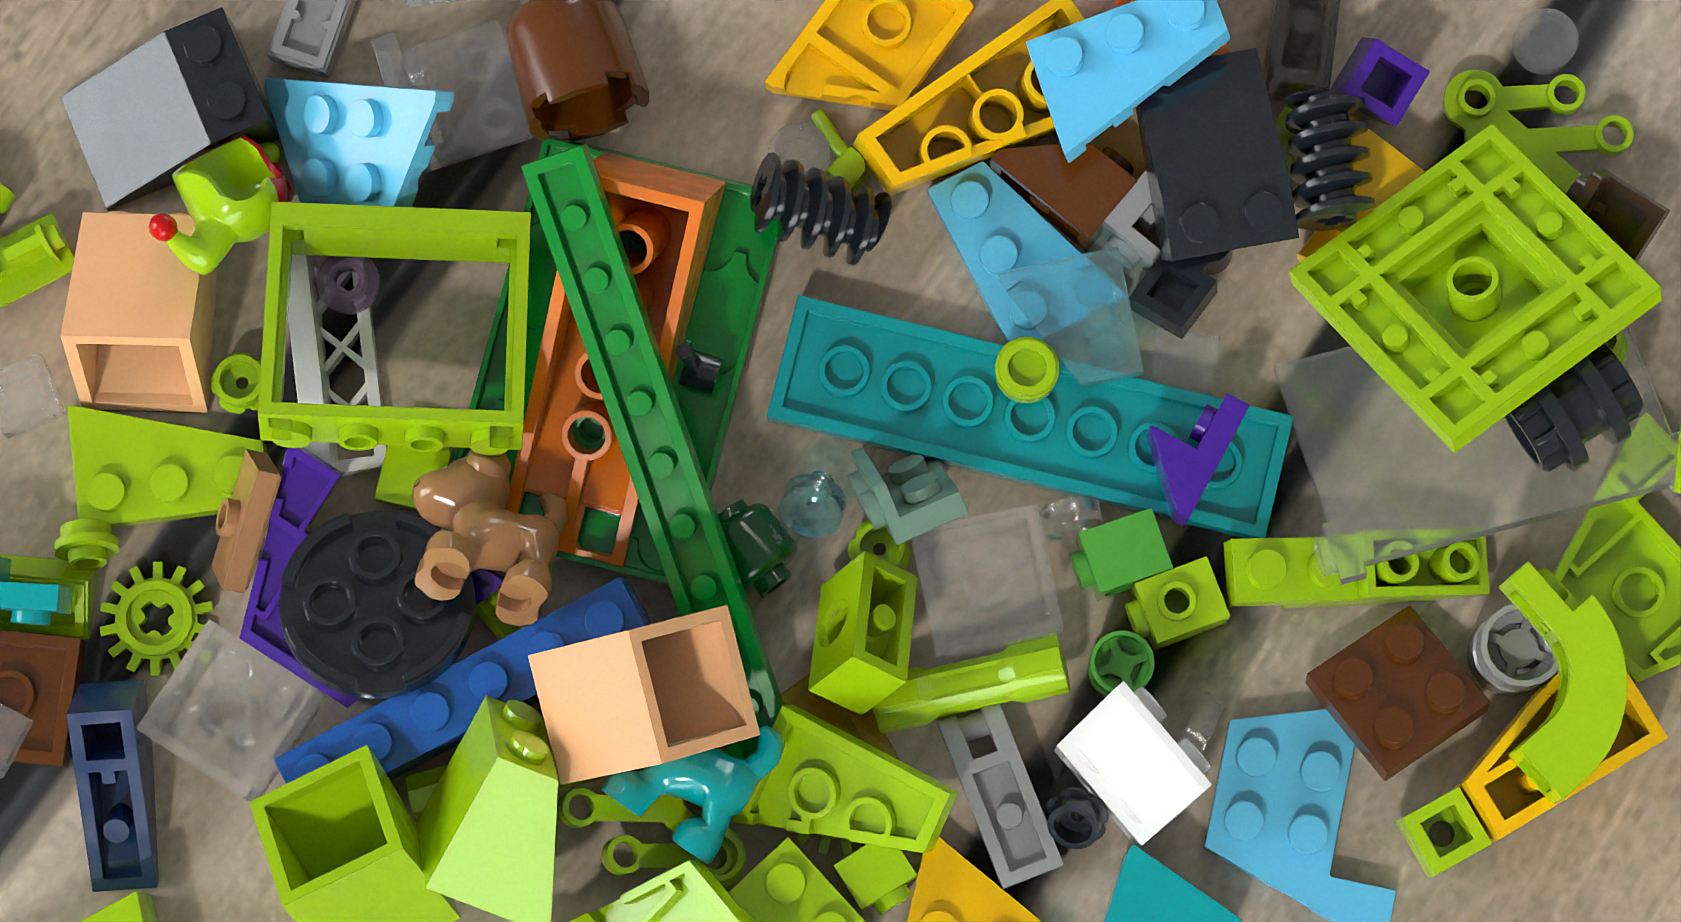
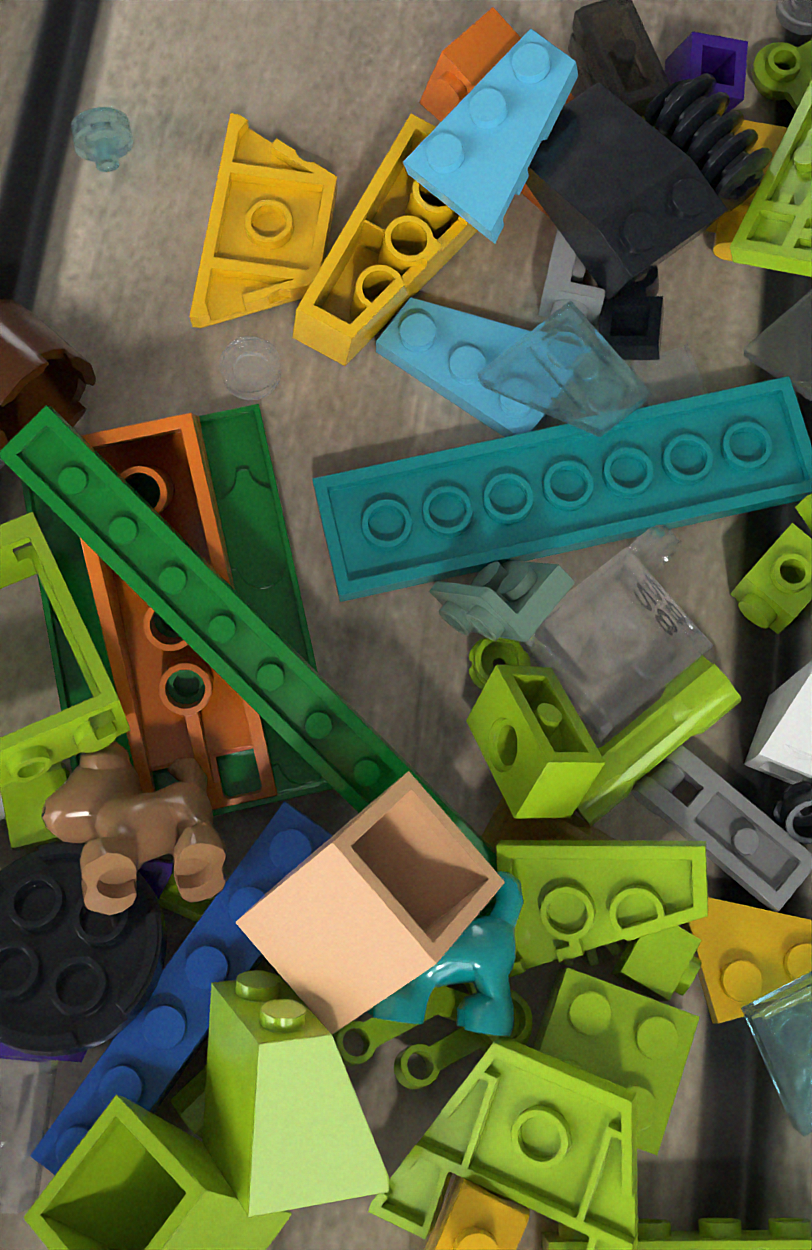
camera: 35 degrees left, 5 degrees down
(699, 368) = (258, 582): black hand -> none
(758, 546) = (393, 713): dark green head -> none
(813, 505) = (421, 654): clear light blue tile -> none
(818, 208) = (292, 393): black piece -> none
(849, 161) = (298, 352): lime hand -> none
(1026, 369) = (546, 444): lime tile -> none
(1068, 195) = (493, 279): reddish brown slope -> none
(1120, 554) = (713, 561): bright green brick -> none
(1128, 659) = (775, 648): bright green wheel -> none
(1187, 470) = (736, 452): dark purple slope -> none

